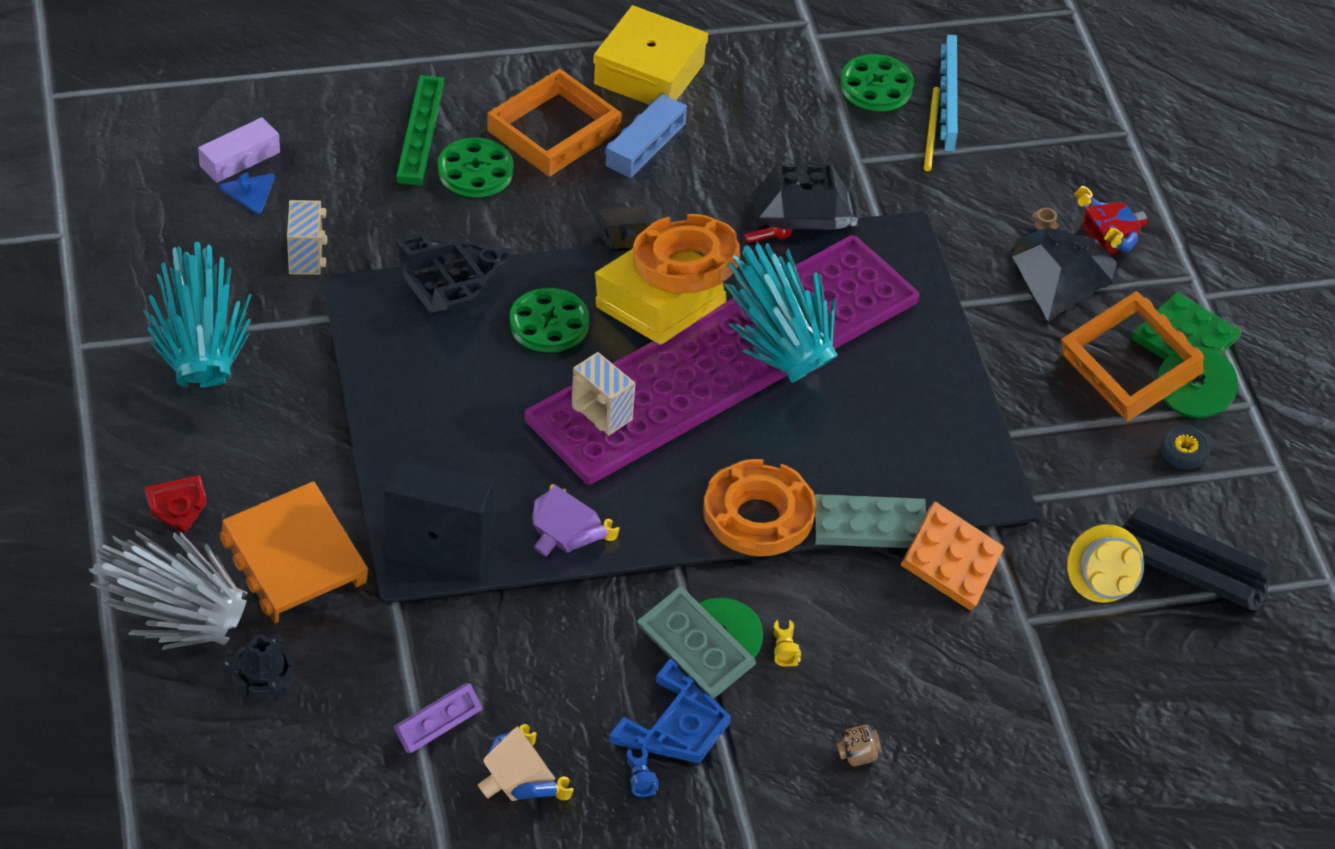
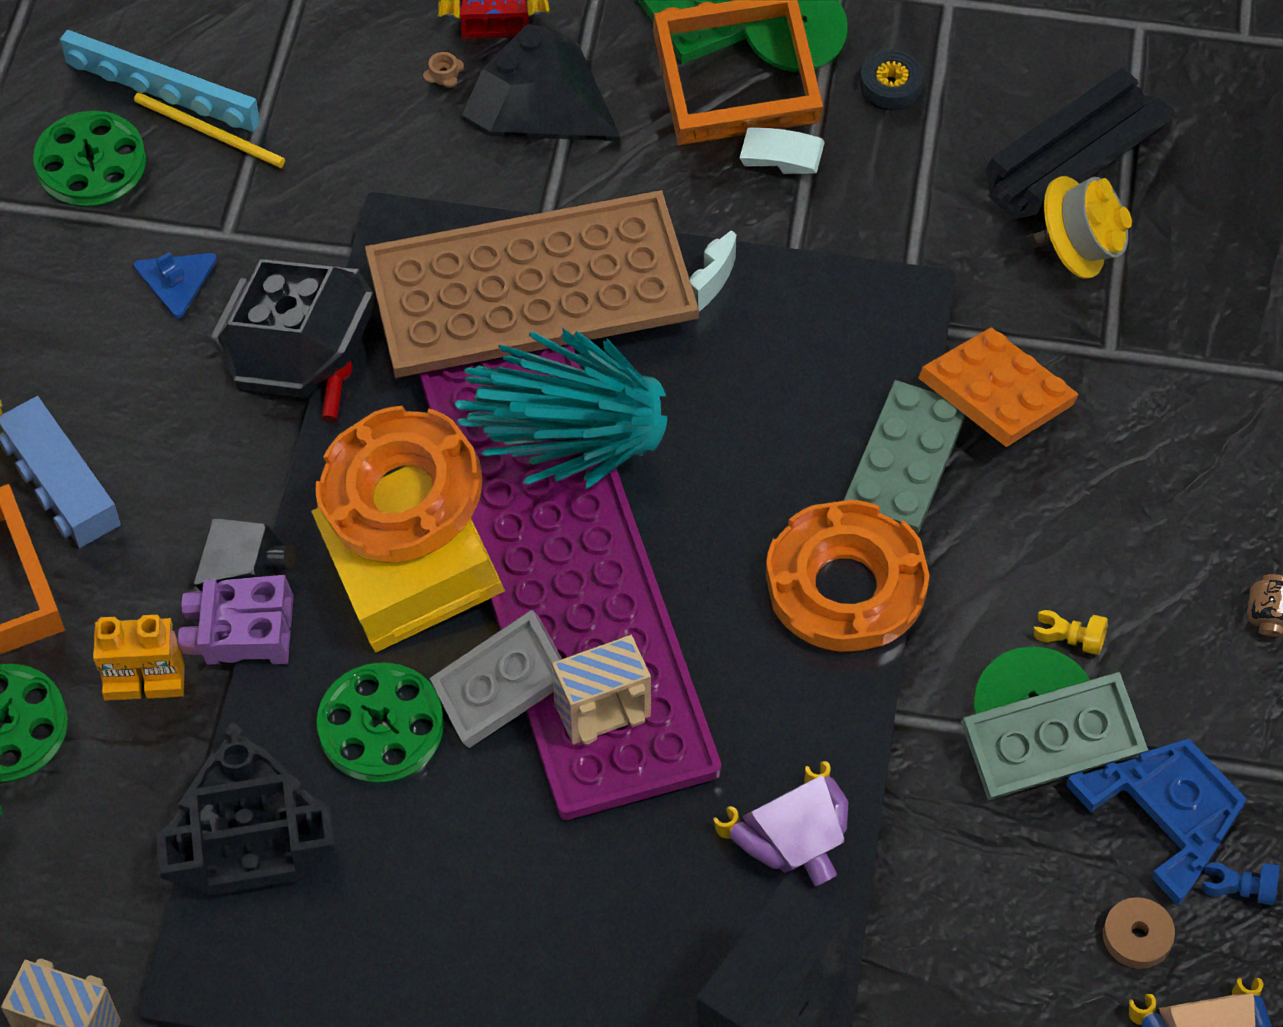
camera: 65 degrees left, 10 degrees up
(536, 200) = (136, 649): none -> light orange hips
(580, 735) = (1134, 950): none -> medium nougat piece
(583, 238) = (239, 620): none -> medium lavender hips
(619, 353) = (498, 679): none -> light grey plate
(814, 148) = (176, 278): none -> blue piece
(890, 294) = (490, 284): none -> medium nougat plate
(965, 387) = (718, 263): none -> light aqua slope
(1084, 402) = (782, 148): none -> light aqua slope

